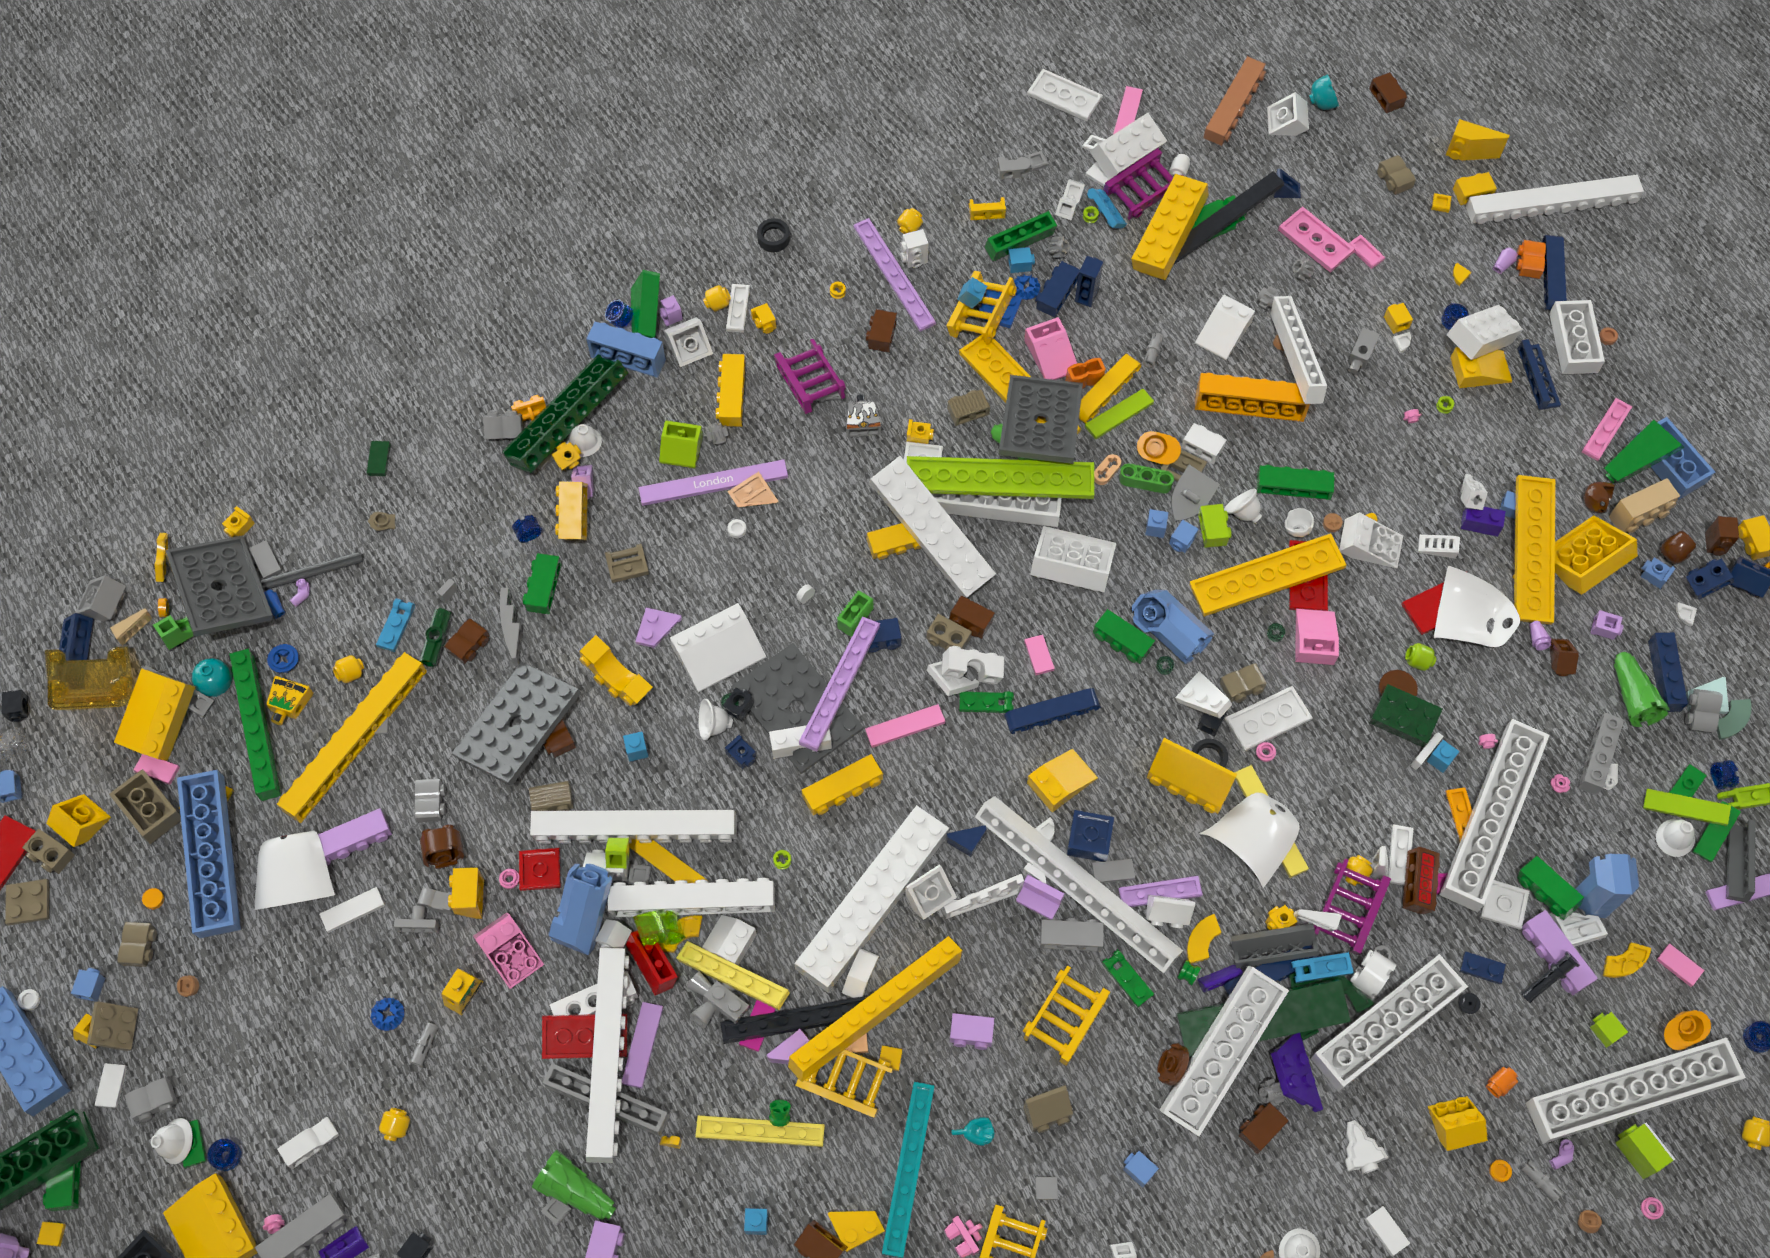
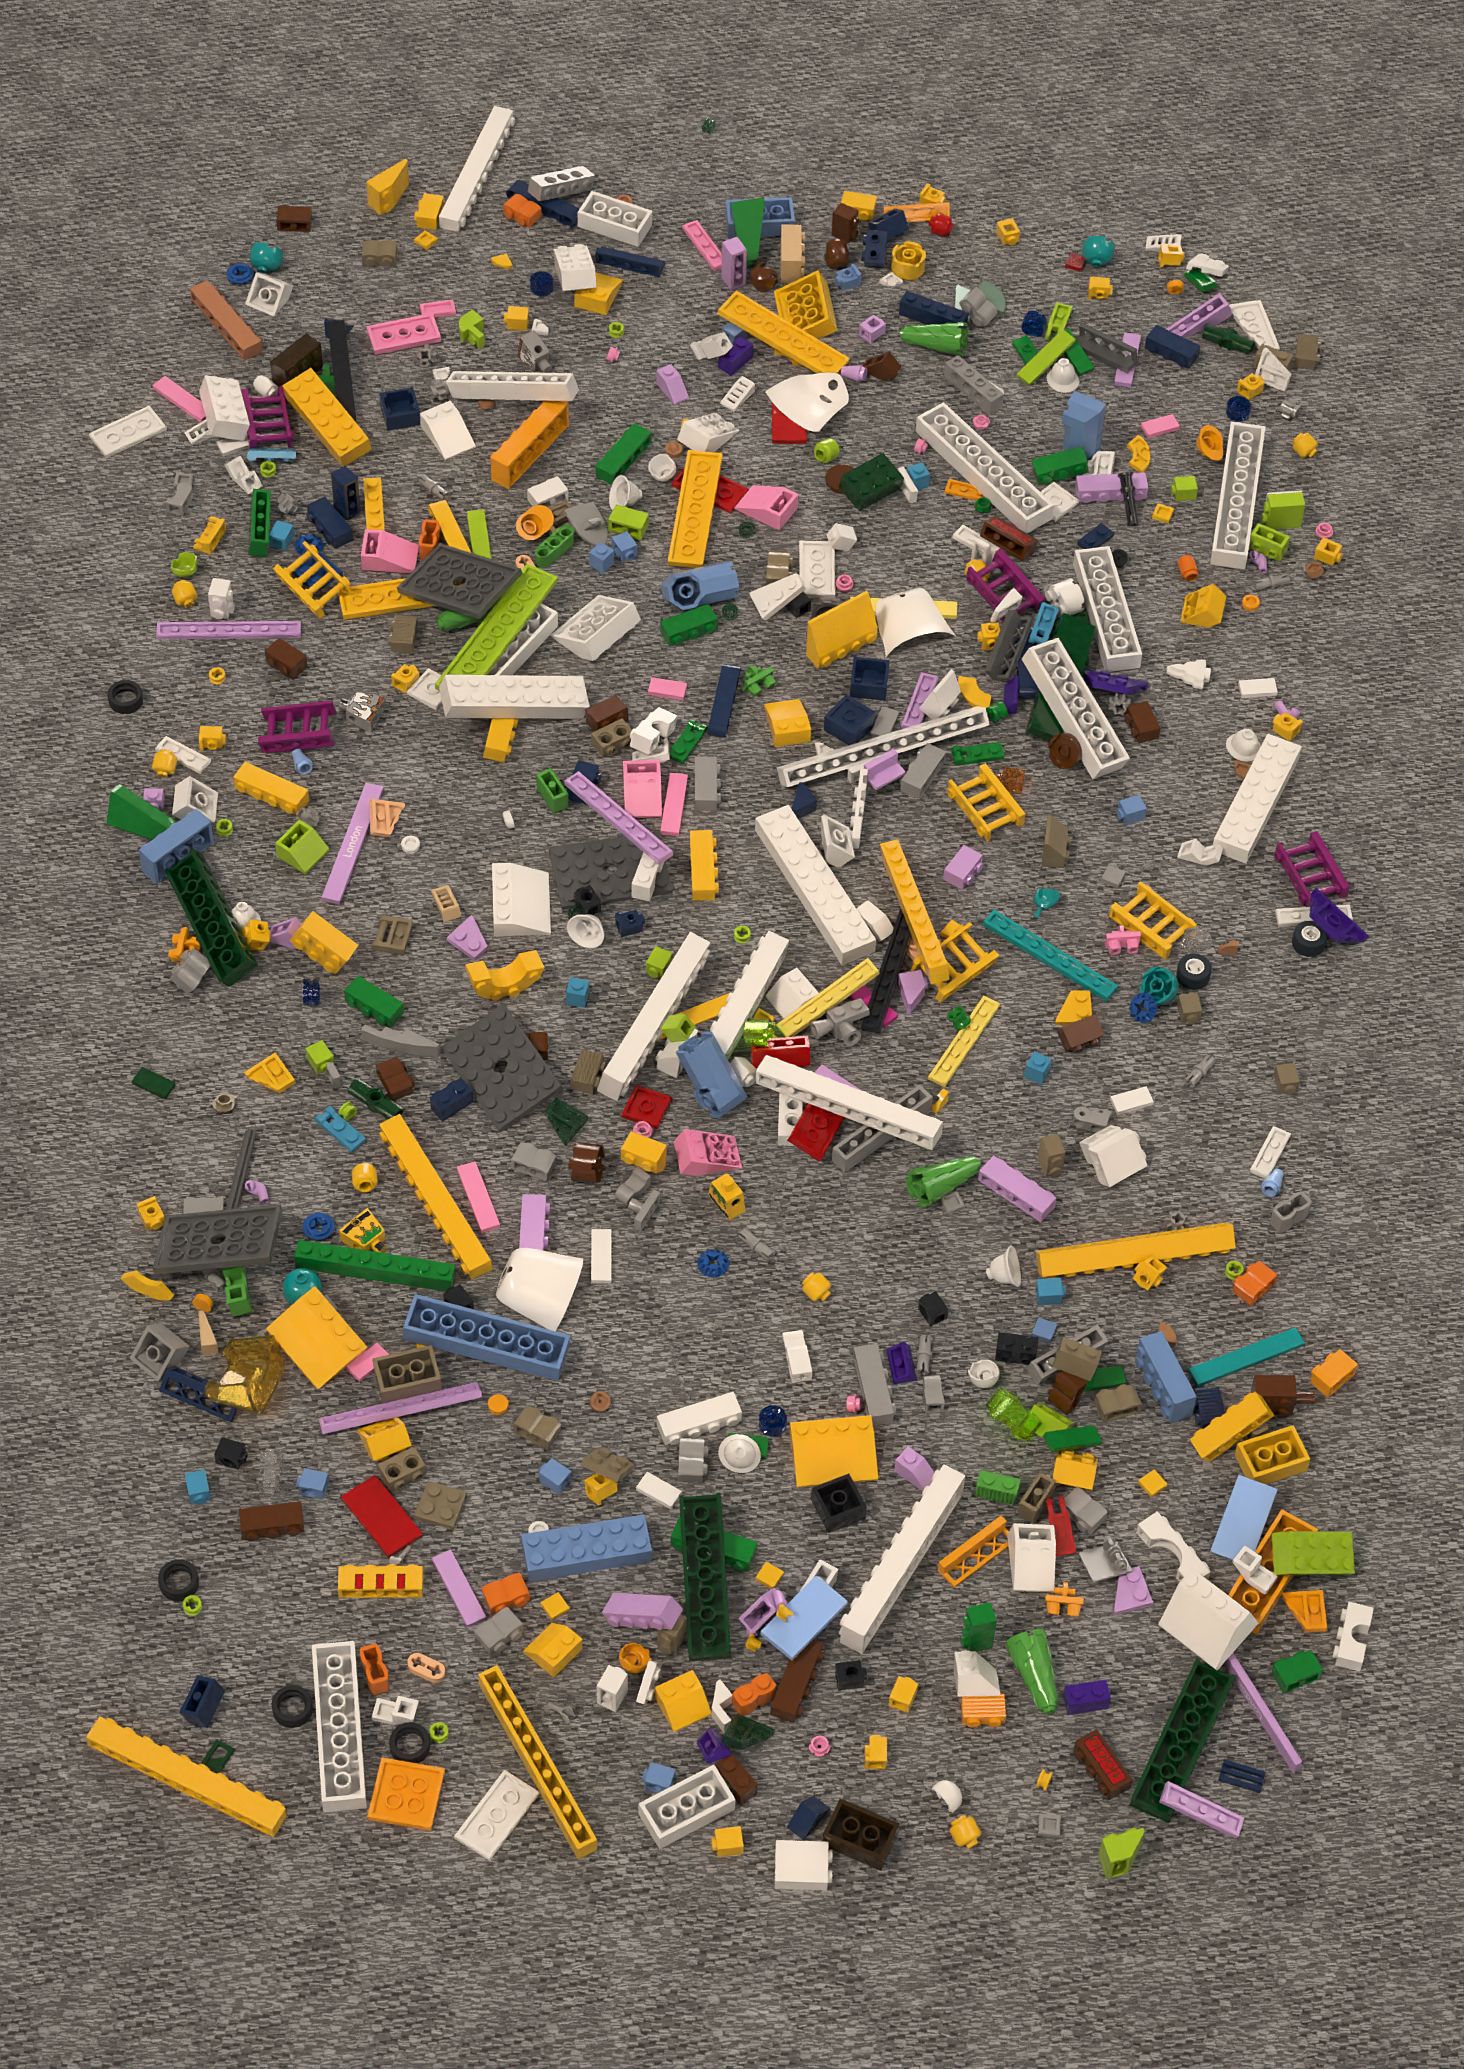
camera: 65 degrees left, 10 degrees down
(115, 819) = (400, 1407): none -> lavender tile
(199, 1085) = (699, 1418): none -> white brick
(246, 810) = (459, 1297): none -> black brick
(372, 773) = (478, 1197): none -> bright pink tile
(415, 621) = (347, 1111): none -> lime bush
(428, 543) = (271, 1074): none -> yellow wing
(461, 570) = (319, 1056): none -> lime brick
(464, 698) = (451, 1099): none -> dark blue brick
(489, 806) = (565, 1120): none -> clear green wing
(618, 313) = (122, 840): clear blue wheel -> none
(677, 381) = (227, 823): none -> lime bush
(679, 598) = (450, 912): none -> tan slope
(706, 799) = (658, 962): none -> lime brick
(778, 399) = (302, 763): none -> light blue cone
(901, 689) = (642, 788): none -> bright pink slope
(941, 742) = (707, 784): none -> light grey brick
(945, 206) = (185, 565): none -> lime hair
(972, 292) = (300, 574): dark azure brick -> none
(1094, 314) = (373, 503): none -> yellow brick
(1102, 734) = (752, 684): none -> bright green hips
(1109, 1037) = (1012, 779): none -> clear orange brick
(1156, 830) = (869, 678): none -> dark blue container
(1220, 172) = (296, 359): none -> dark brown brick
(1224, 277) = (400, 408): none -> dark blue container
(1290, 290) = (441, 373): none -> white tile
(1294, 80) = (244, 270): none -> blue gear
(1317, 721) = (841, 537): none -> white brick
(1358, 284) = (470, 329): none -> lime brick
(1408, 482) = (671, 384): none -> lavender slope
(1451, 831) = (983, 505): none -> green plate
(1505, 260) = (510, 226): lavender cone -> none
(1562, 1022) = (1163, 513): none -> yellow tile
(1583, 272) = (561, 183): none -> light grey brick
(1590, 461) = (734, 263): none -> lavender brick
(1590, 1154) = (1269, 542): none -> lime brick
(1628, 1221) = (1328, 552): none -> yellow brick
(1718, 616) = (908, 261): none -> yellow brick
(1758, 359) = (708, 126): none -> clear green bush

